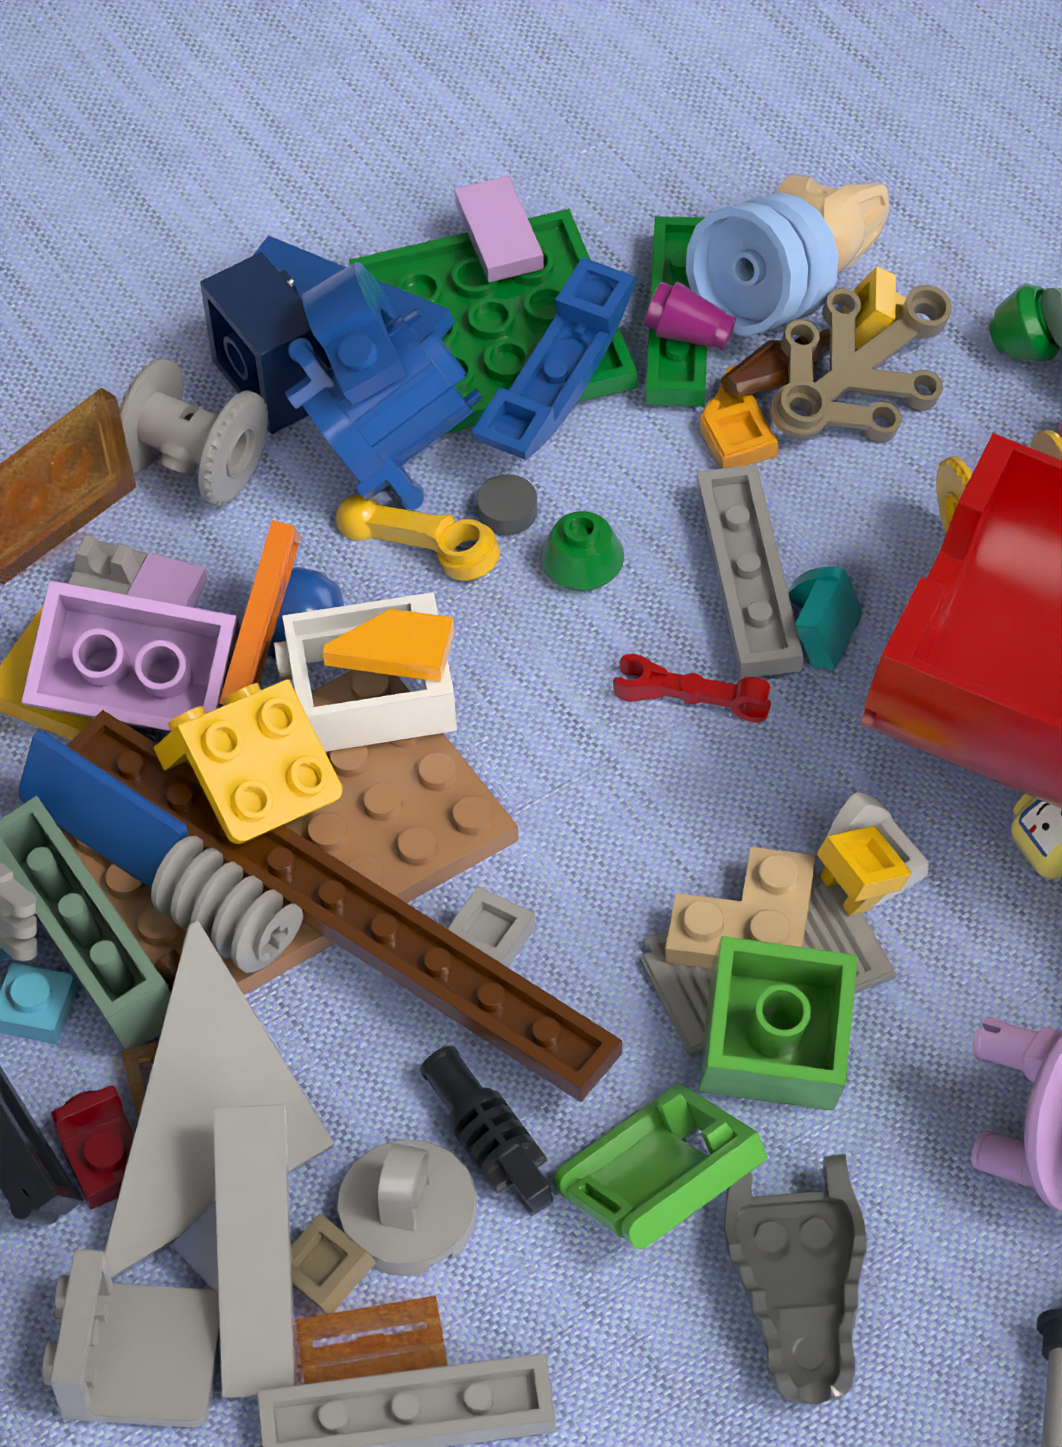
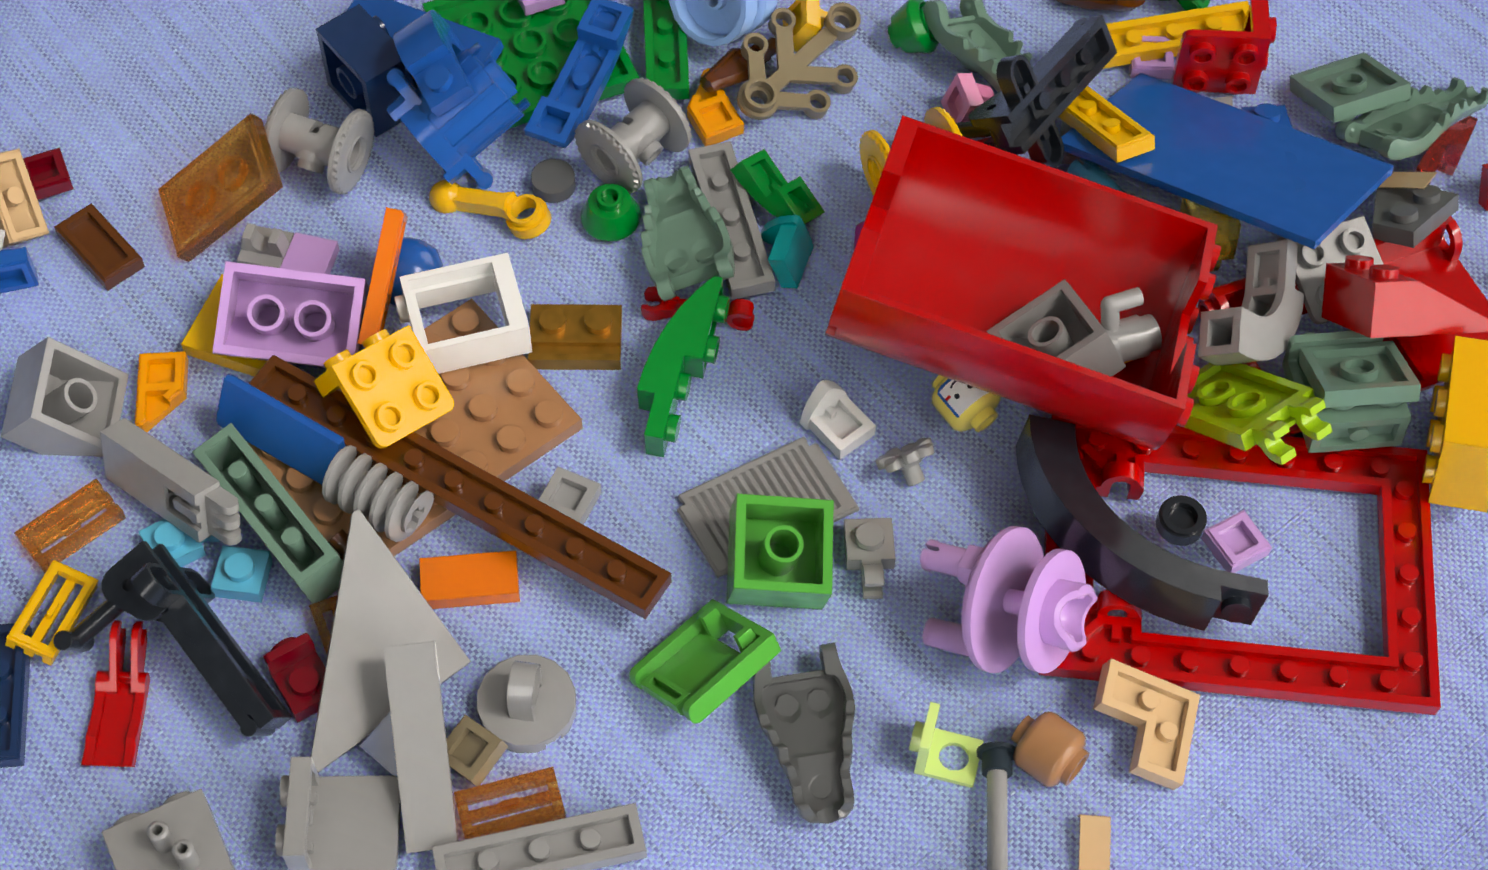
camera: 10 degrees left, 5 degrees up
(344, 1033) = (470, 579): none -> orange tile
(395, 645) = (484, 294): light orange tile -> none
(489, 1130) = (580, 643): black hinge -> none
(520, 715) = (575, 337): none -> pearl gold plate
(647, 436) = (651, 125): none -> light grey hose
(656, 748) = (678, 356): none -> green slope
(679, 586) = (683, 235): none -> sand green animal
(688, 317) = (672, 35): magenta cone -> none
(770, 911) = (766, 472): tan plate -> none
(808, 533) = (772, 191): none -> green slope
(862, 866) = (830, 433): yellow tile -> none
(908, 1032) = (869, 549): none -> light grey plate
(970, 912) = (907, 460): none -> light grey plant
(970, 1307) = (929, 743): none -> yellowish green bracket

